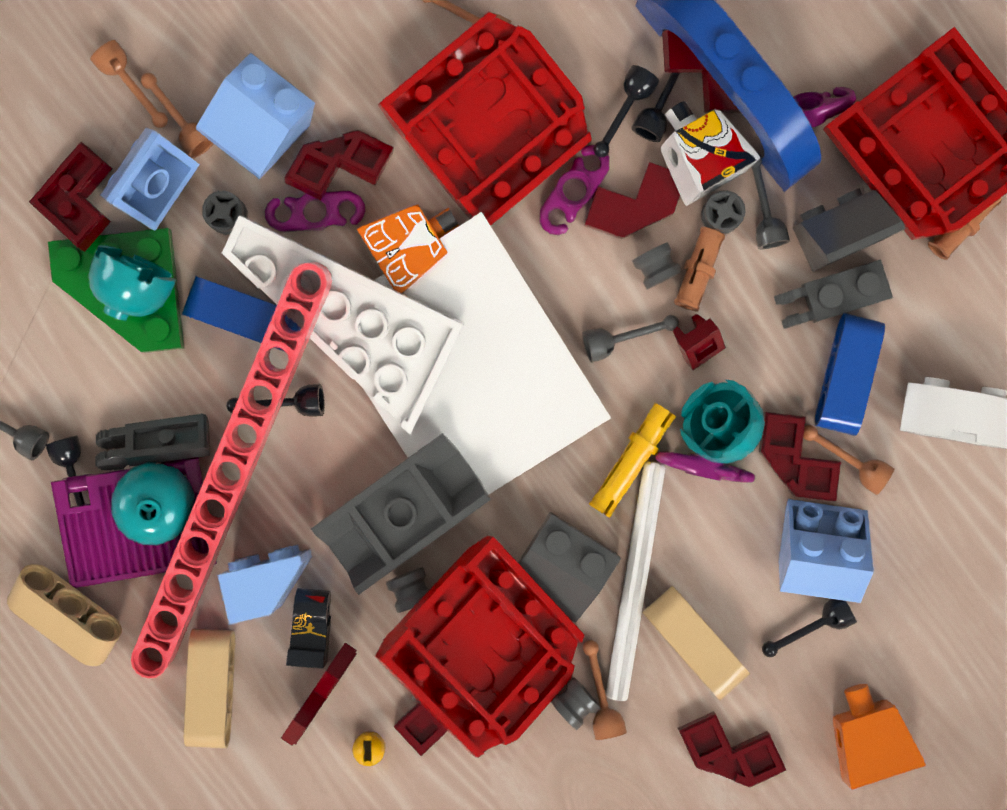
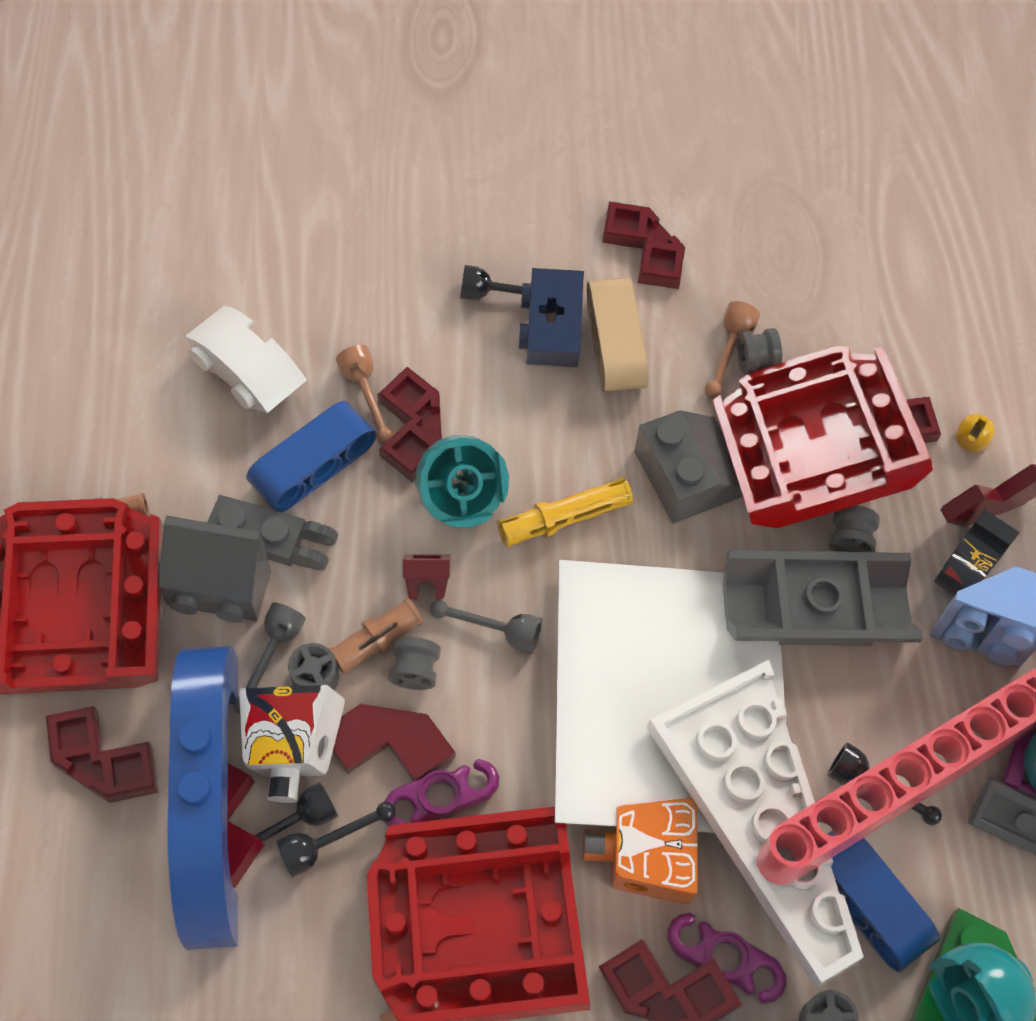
camera: 150 degrees left, 25 degrees down
(635, 581) = (627, 421): white axle -> none
(699, 466) = (519, 474): magenta piece -> none
(732, 605) = (556, 341): none -> dark blue brick
(820, 106) = (134, 700): magenta piece -> none
(825, 551) = (447, 333): light blue slope -> none
(838, 52) = (111, 773): none -> dark red tile
(872, 740) = (521, 176): orange torso -> none

